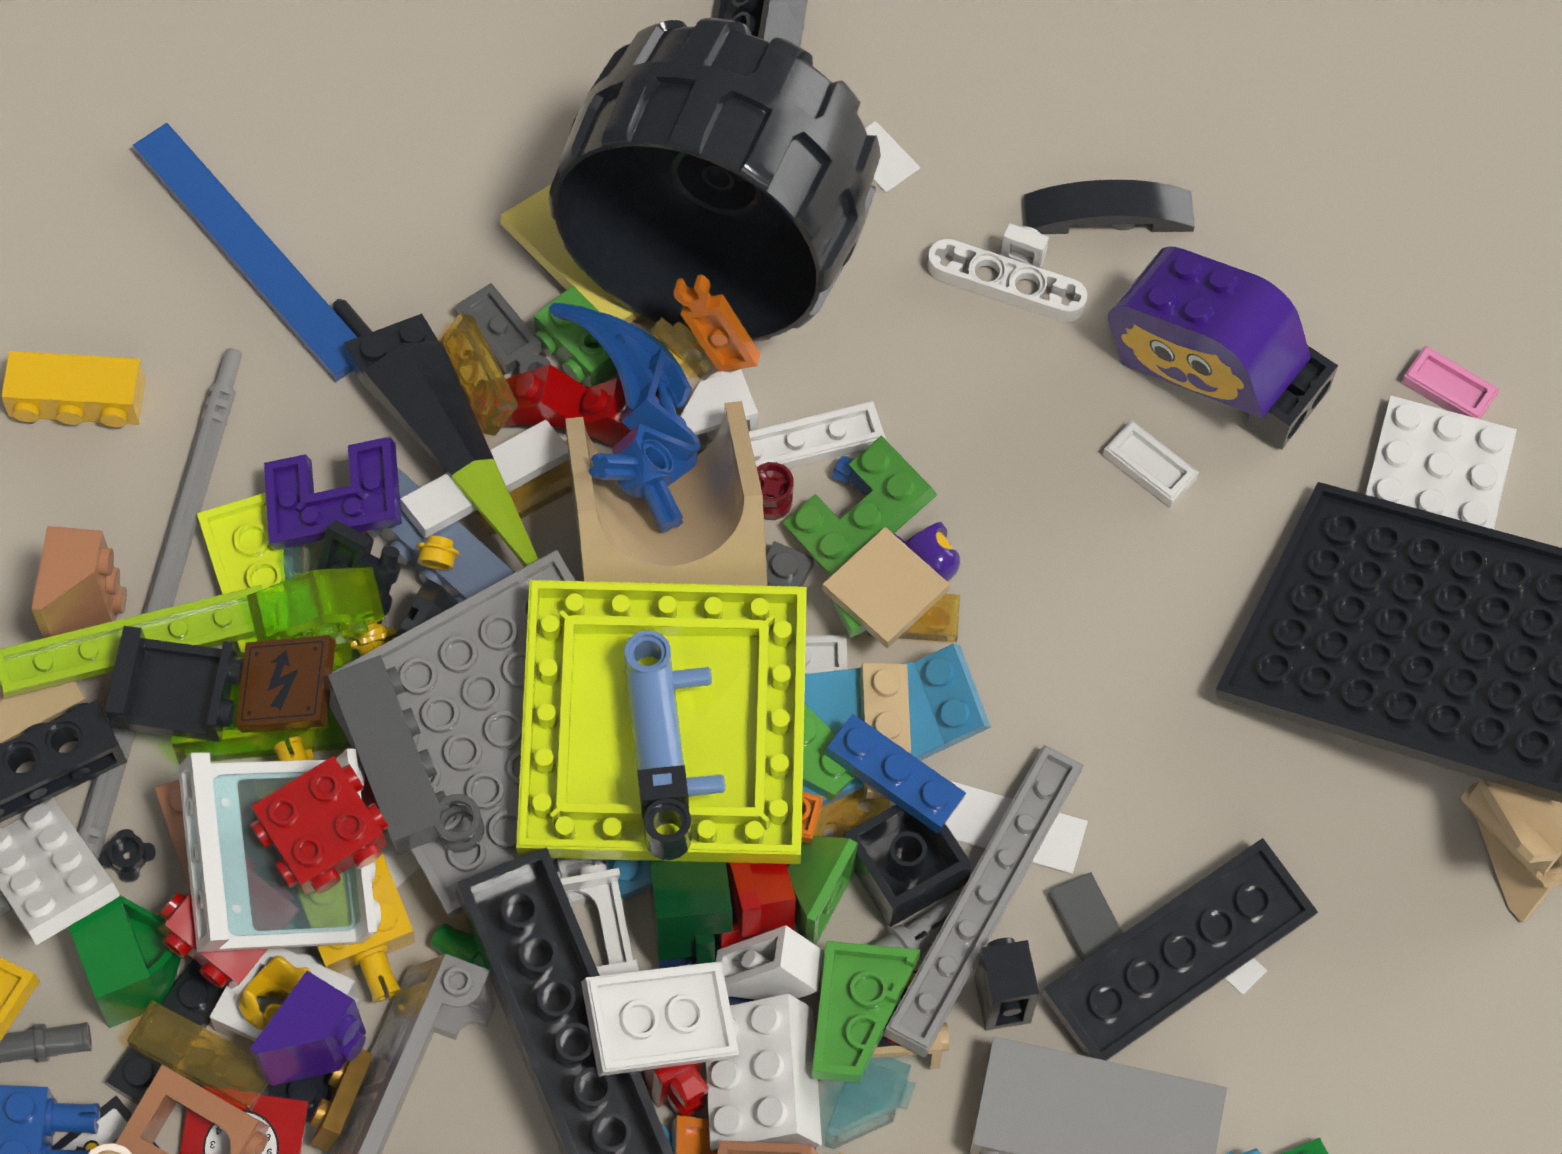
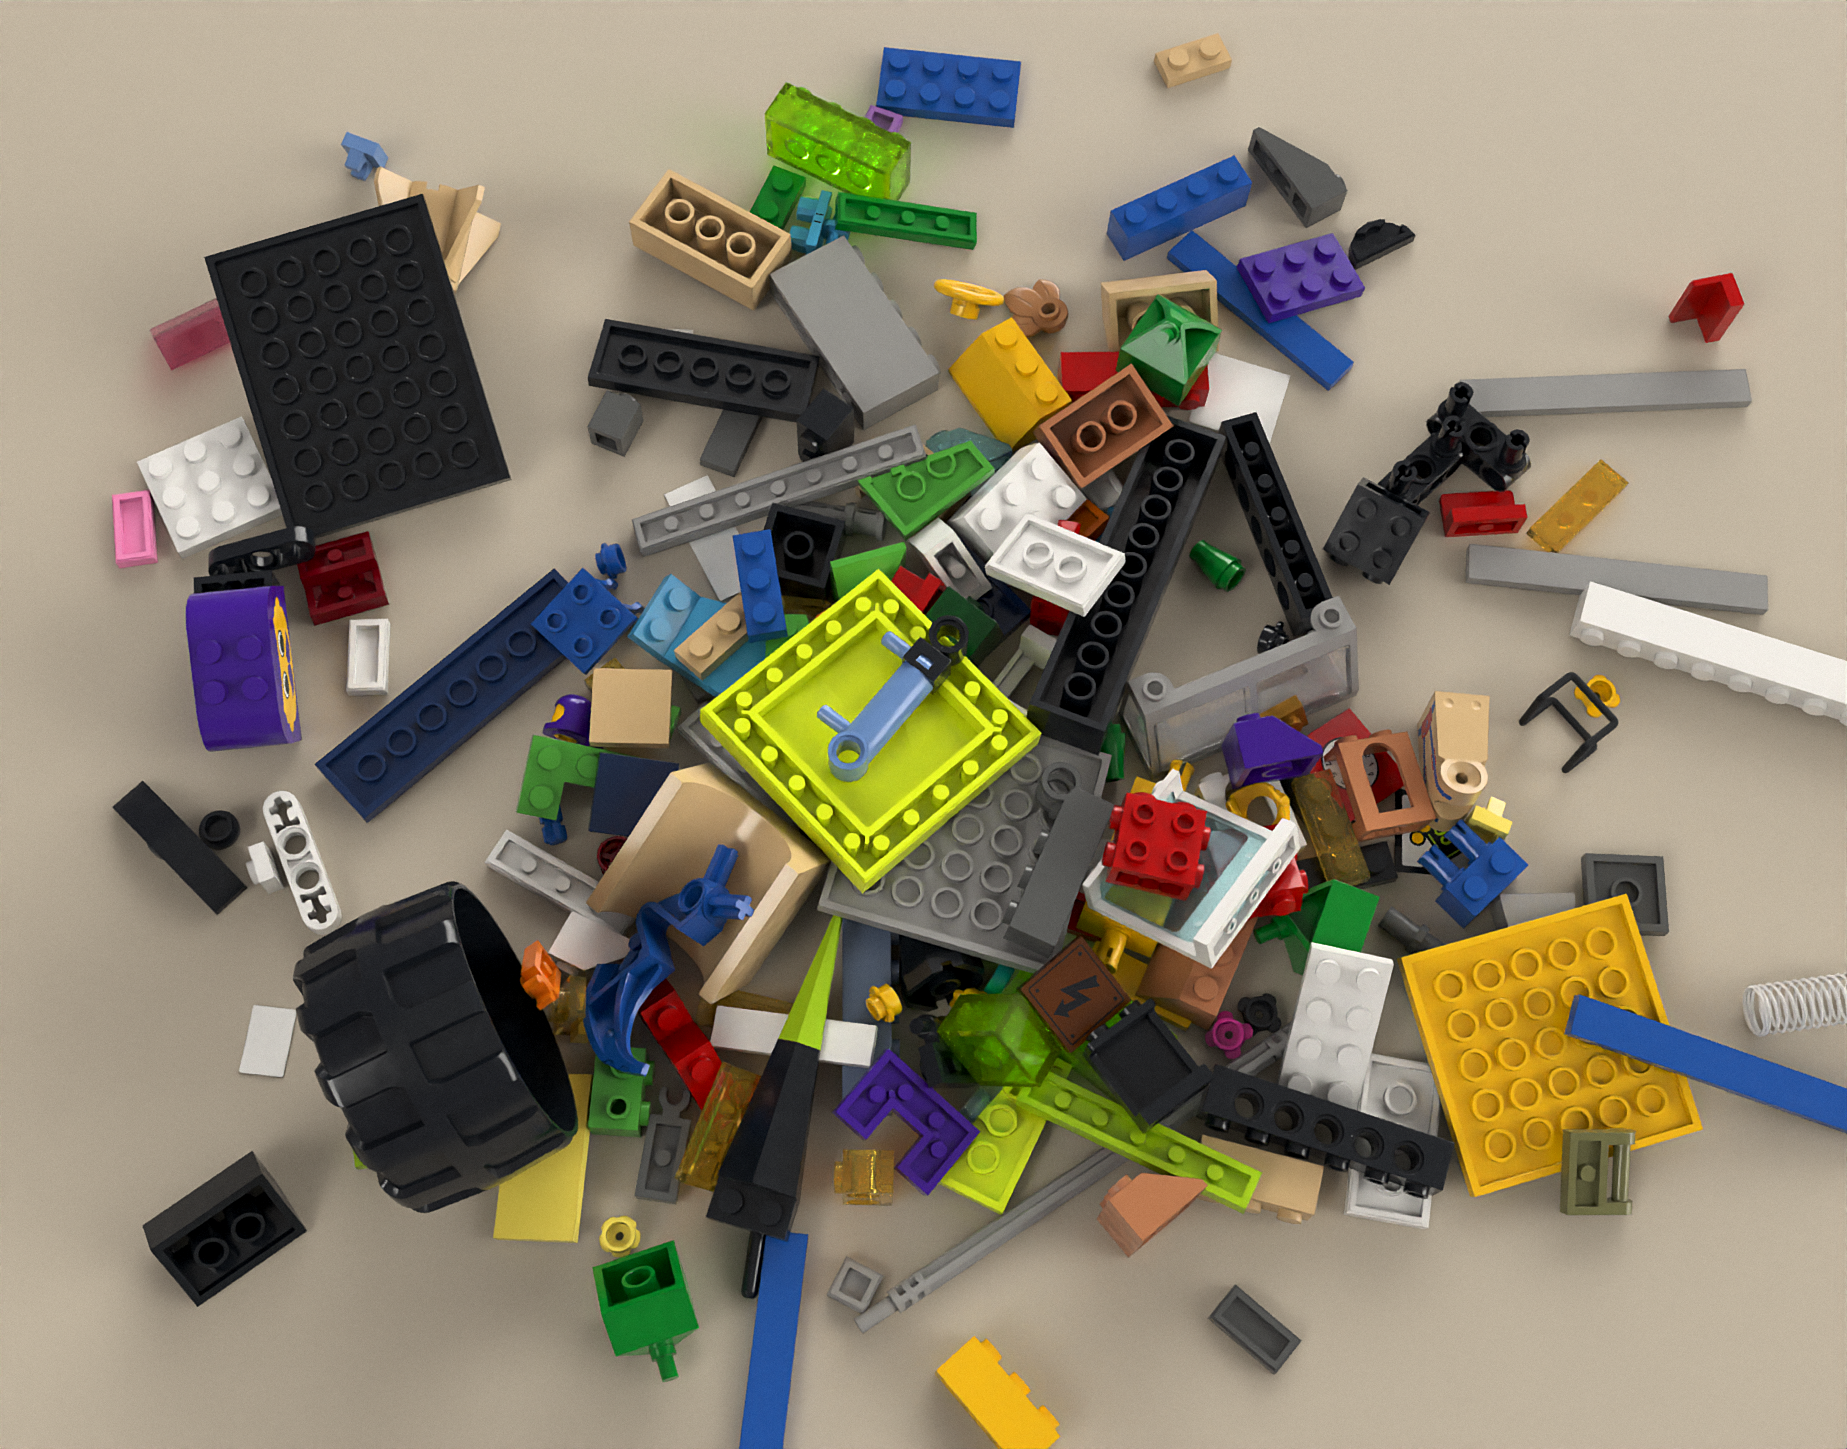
camera: 135 degrees left, 5 degrees up
(138, 802) = (1226, 1023): none -> dark pink plate
(264, 378) = (855, 1285): none -> light grey tile
(322, 431) = (865, 1177): none -> clear yellow brick
(402, 215) = (646, 1305): none -> green piece
(473, 246) = (623, 1225): none -> light yellow plate
(810, 531) = (624, 791): none -> dark blue tile
(1011, 632) = (586, 620): none -> blue plate
(1042, 504) = (445, 705): none -> dark blue plate
(1057, 714) = (611, 560): none -> blue plate
(1094, 244) = (219, 830): none -> black plate
(1195, 830) = (615, 422): none -> dark grey brick
(1248, 499) = (343, 579): none -> dark red slope
(1319, 1074) = (710, 239): none -> tan brick
(1324, 447) = (286, 547): none -> black beam

